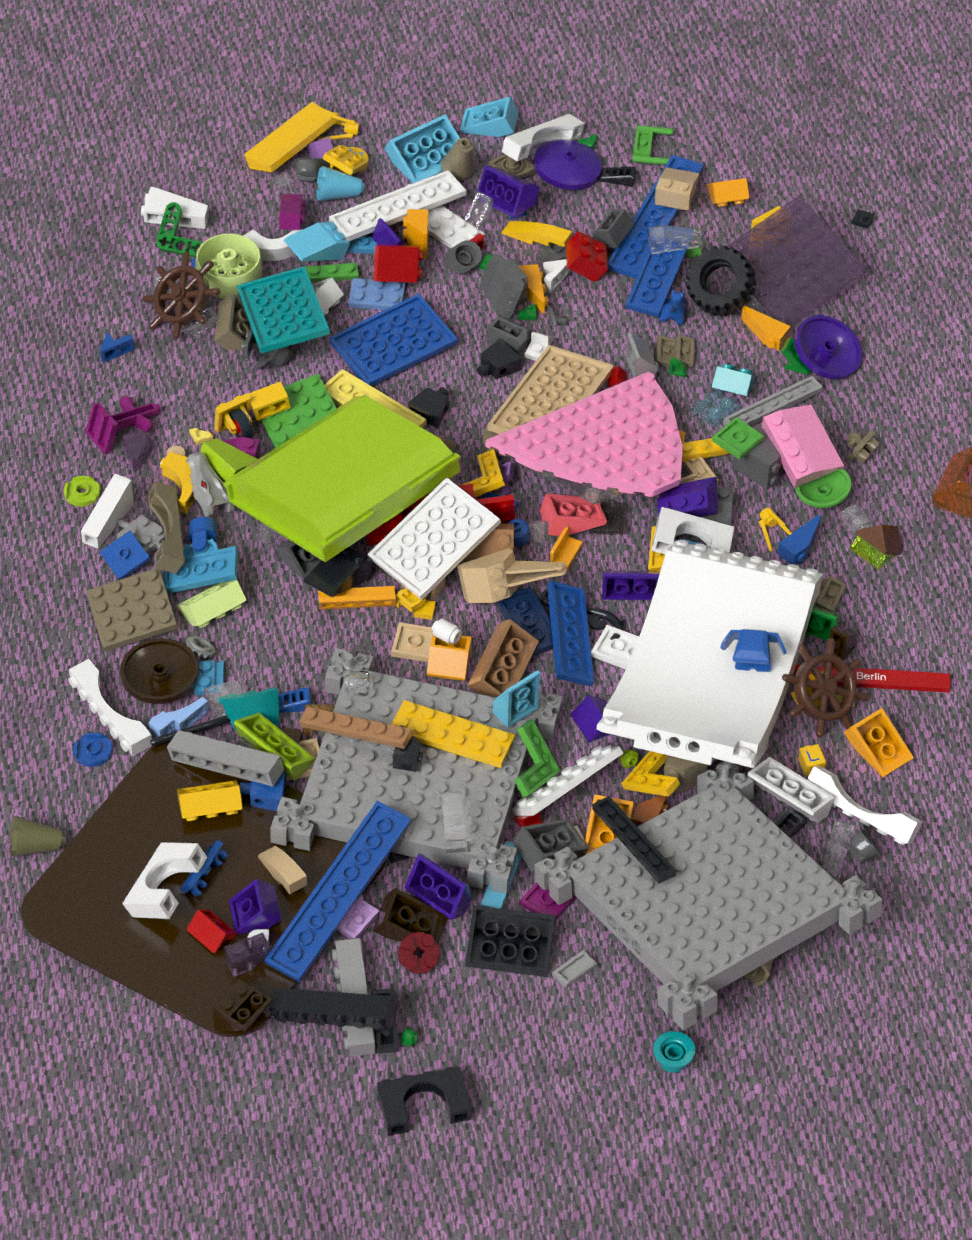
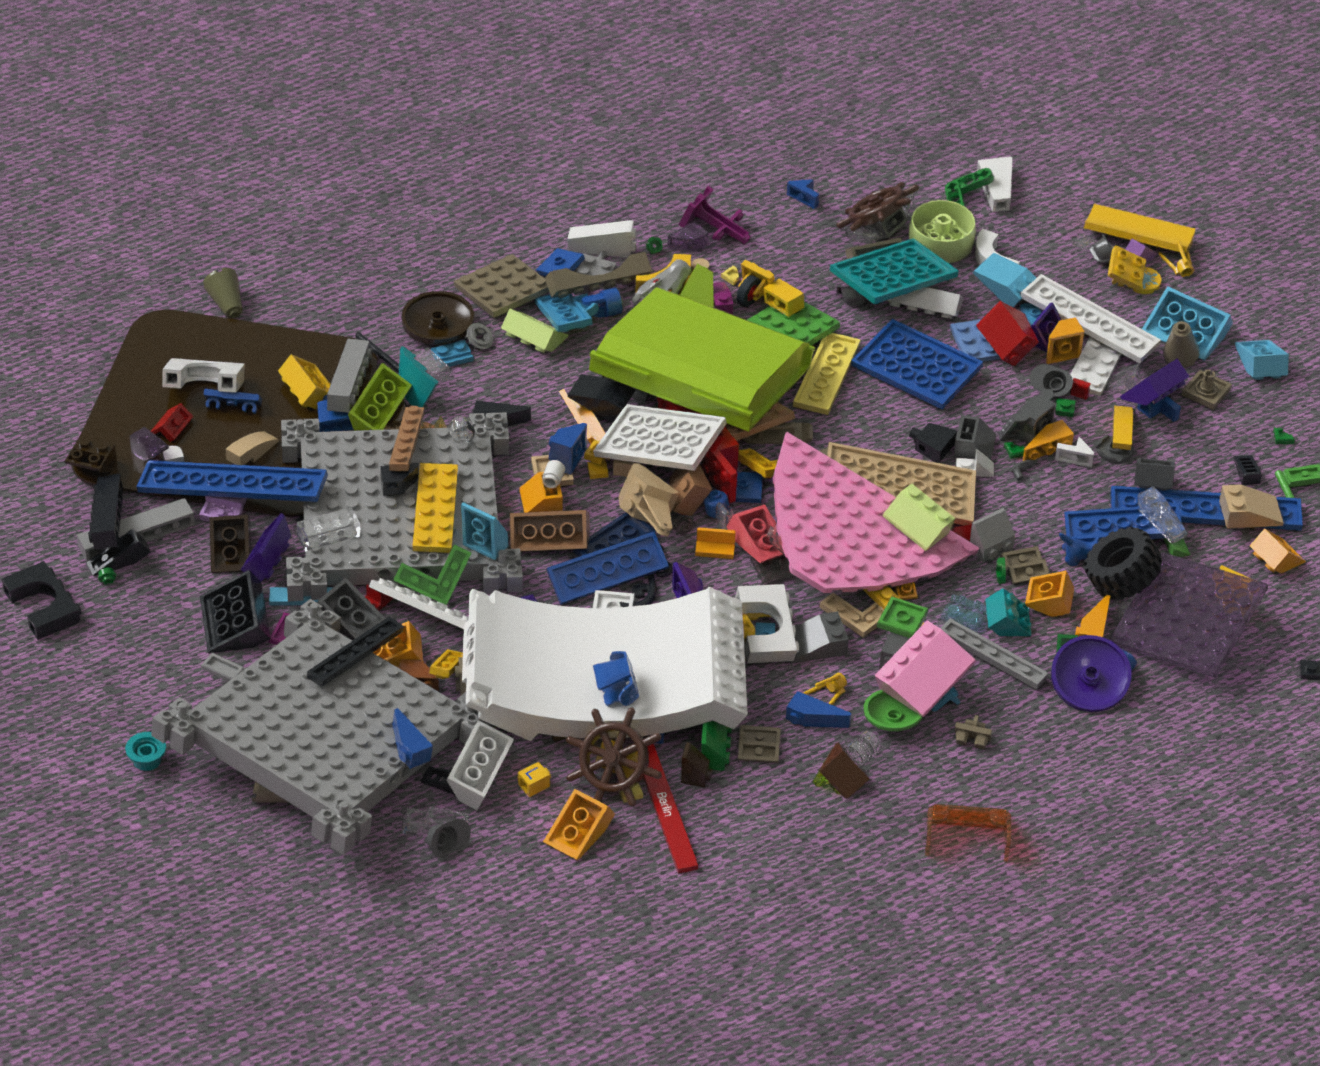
camera: 70 degrees right, 5 degrees down
(82, 499) = (626, 215): lime tile -> none
(92, 749) = (341, 307): blue tile -> none
(131, 733) = (408, 282): white arch -> none
(133, 476) = (649, 246): none -> green plate
(180, 719) = (386, 341): light blue slope -> none
(255, 907) = (202, 442): dark purple slope -> none
(292, 211) = (1036, 251): magenta brick -> none
(297, 706) = (447, 413): blue slope -> none
(316, 667) = (515, 413): none -> black slope
(337, 185) = (1093, 271): medium azure cone -> none
(337, 272) = (980, 299): bright green plate -> none
(411, 962) = (189, 550): dark red plate -> none
(413, 613) = (569, 446): none -> blue slope
(431, 405) = (848, 409): black torso -> none
(519, 144) = (1219, 373): white arch -> none
(567, 164) = (1235, 426): dark purple dish -> none
(586, 256) = (1105, 464): red brick -> none
(618, 389) = (919, 517): none -> yellowish green slope
(693, 498) = (811, 606): dark purple slope -> none
(722, 343) = (1050, 594): none -> light orange slope
(772, 823) = (411, 743): none -> blue slope
(901, 825) = (479, 855): white arch -> none

